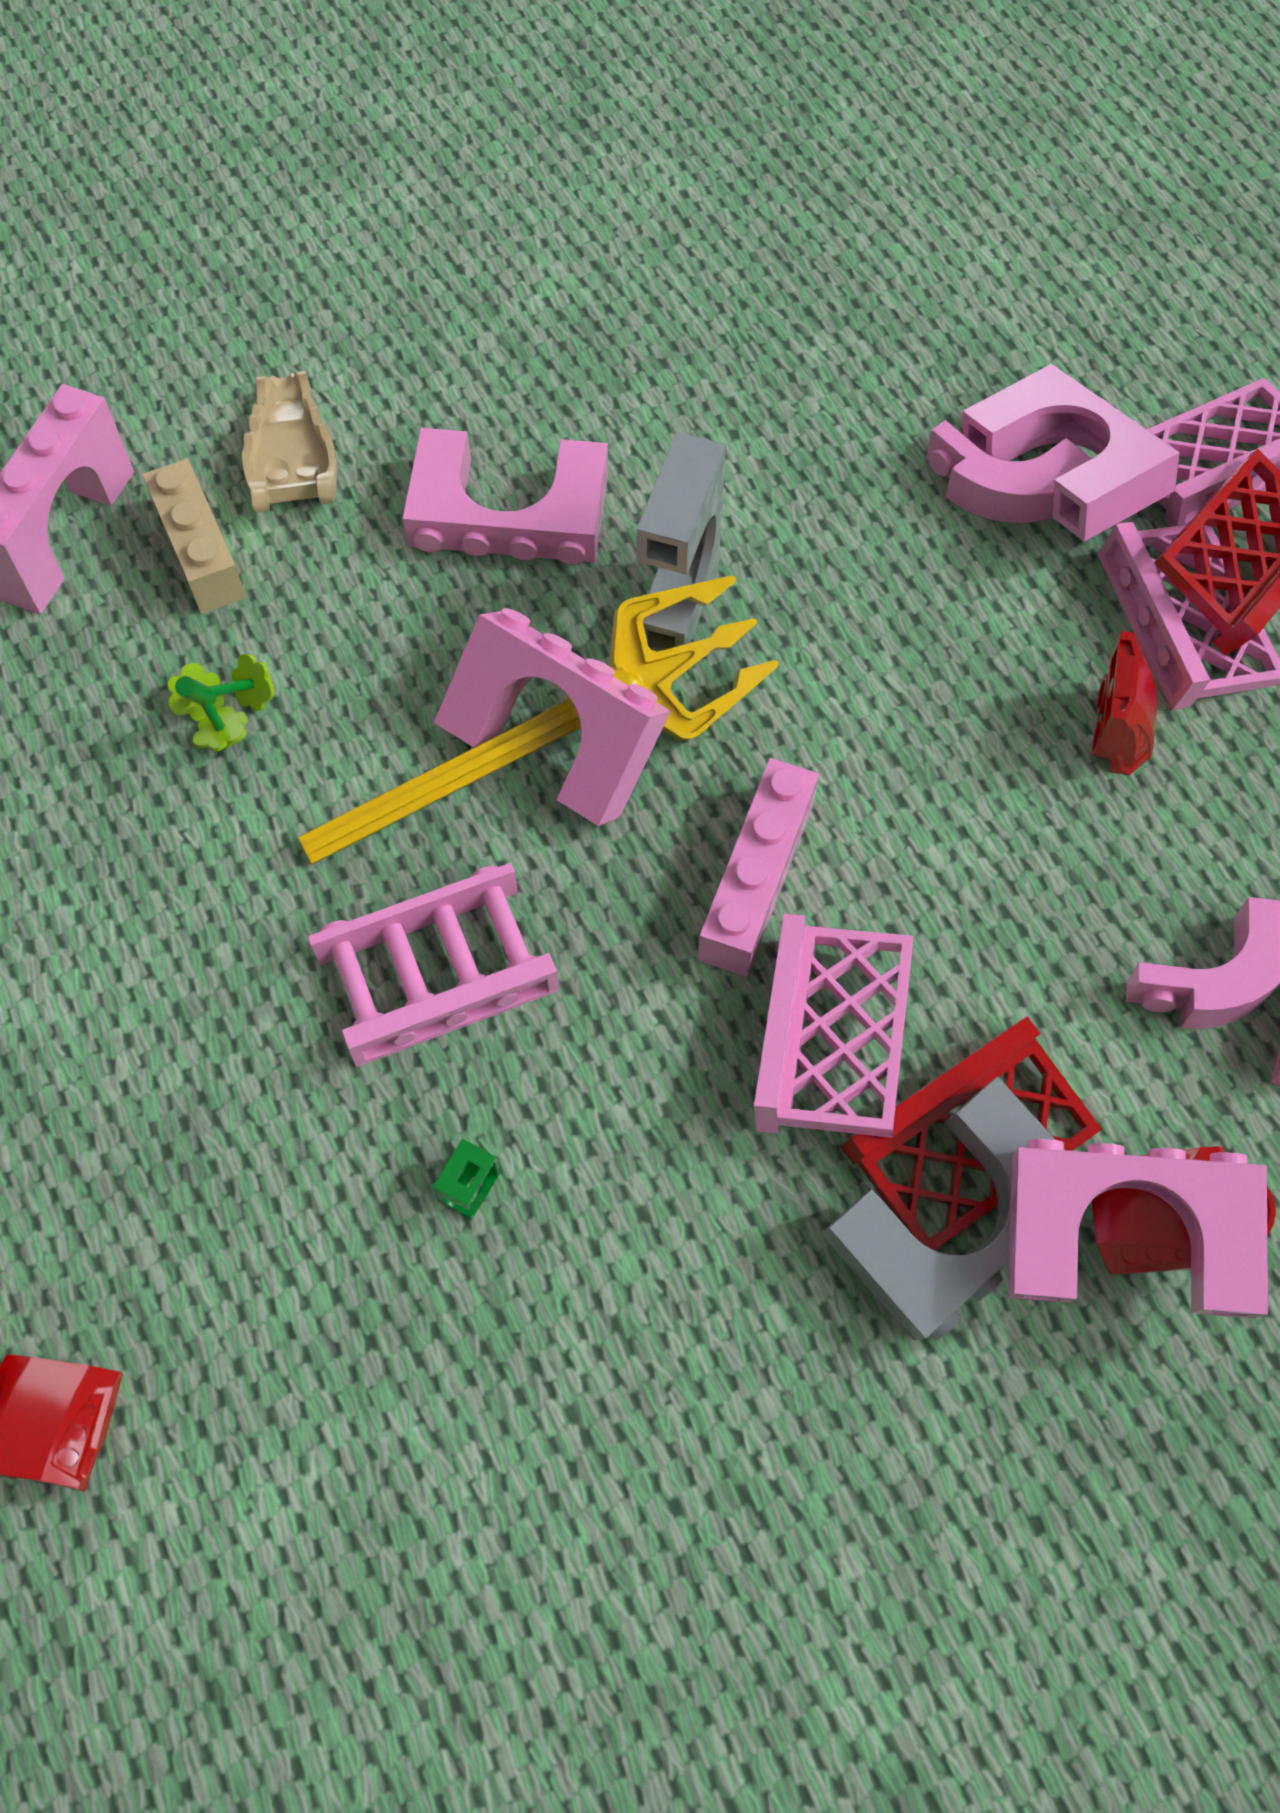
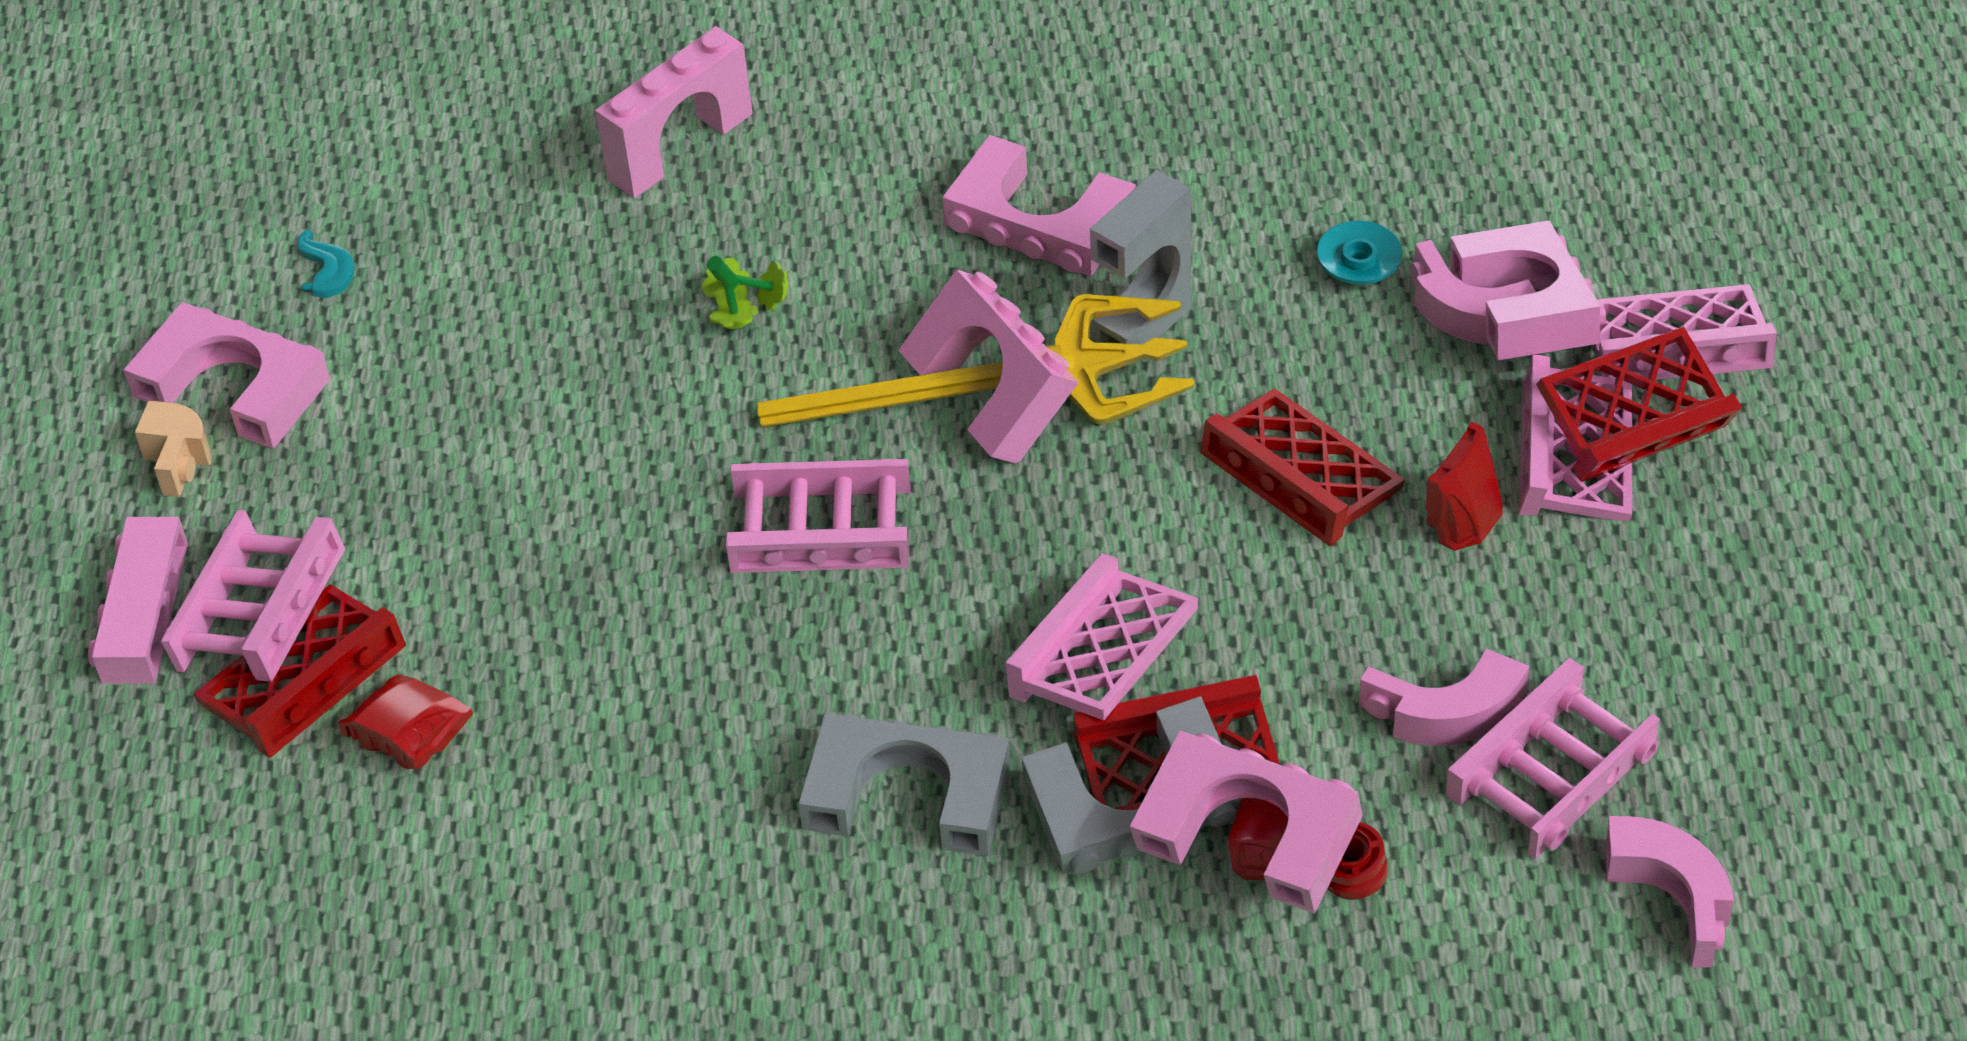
camera: 25 degrees right, 15 degrees down
(194, 536) = (775, 170): tan brick -> none
(288, 445) = (880, 123): tan animal -> none
(452, 1183) = (785, 656): green piece -> none
(756, 1241) = (858, 749): none -> light grey arch
(757, 867) = (1103, 519): bright pink brick -> none
(875, 441) = (1359, 252): none -> teal dish
(915, 749) = (1282, 480): none -> red fence

